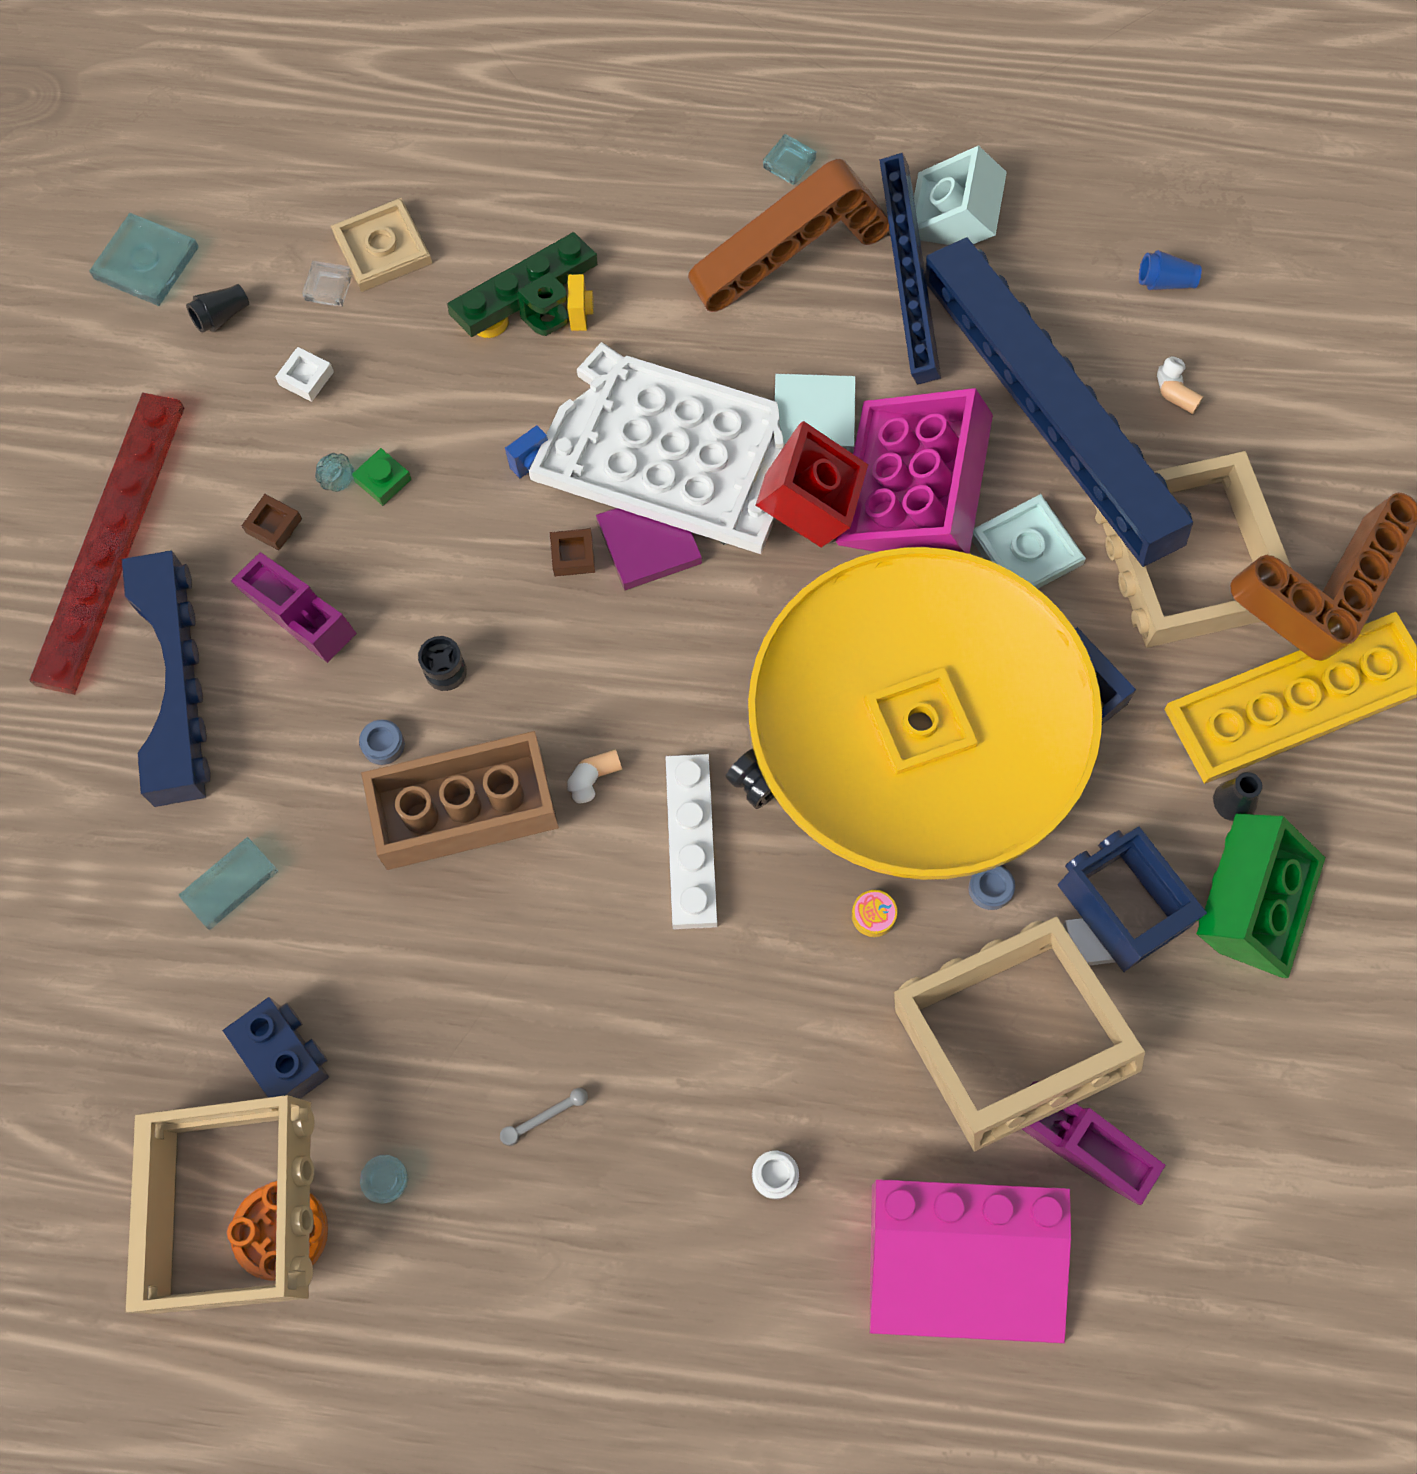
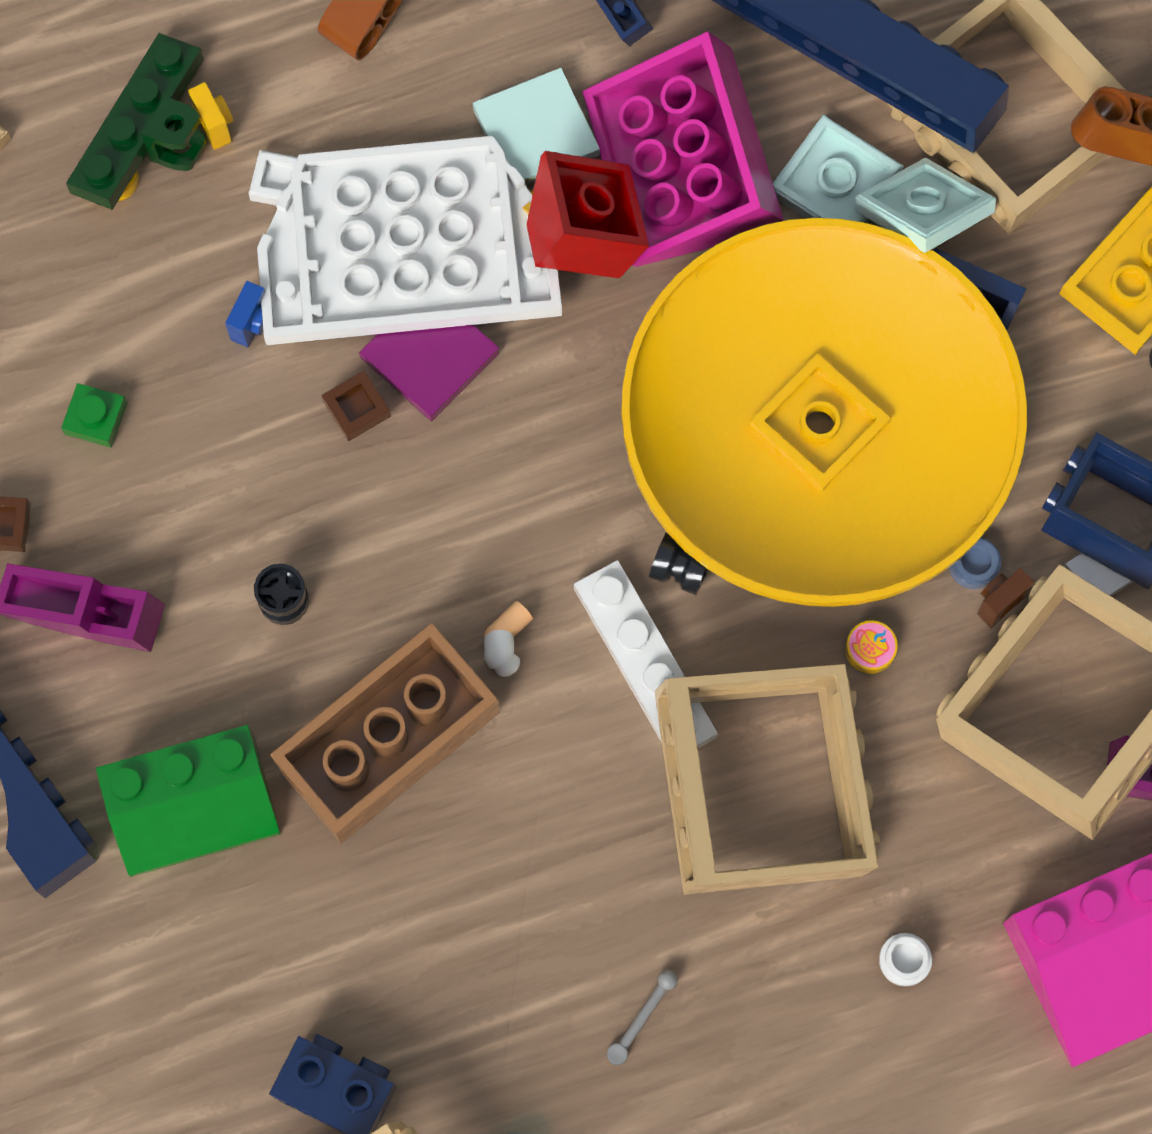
camera: 30 degrees left, 5 degrees up
(228, 883) = (176, 940): clear light blue tile -> none
(291, 782) = (188, 800): none -> green slope
(334, 472) = (39, 434): clear light blue plate -> none
(381, 742) = (259, 708): sand blue tile -> none
(810, 984) = (685, 785): none -> tan window
(1000, 922) = (1004, 595): none -> reddish brown plate
(1086, 591) = (925, 204): none -> light aqua tile

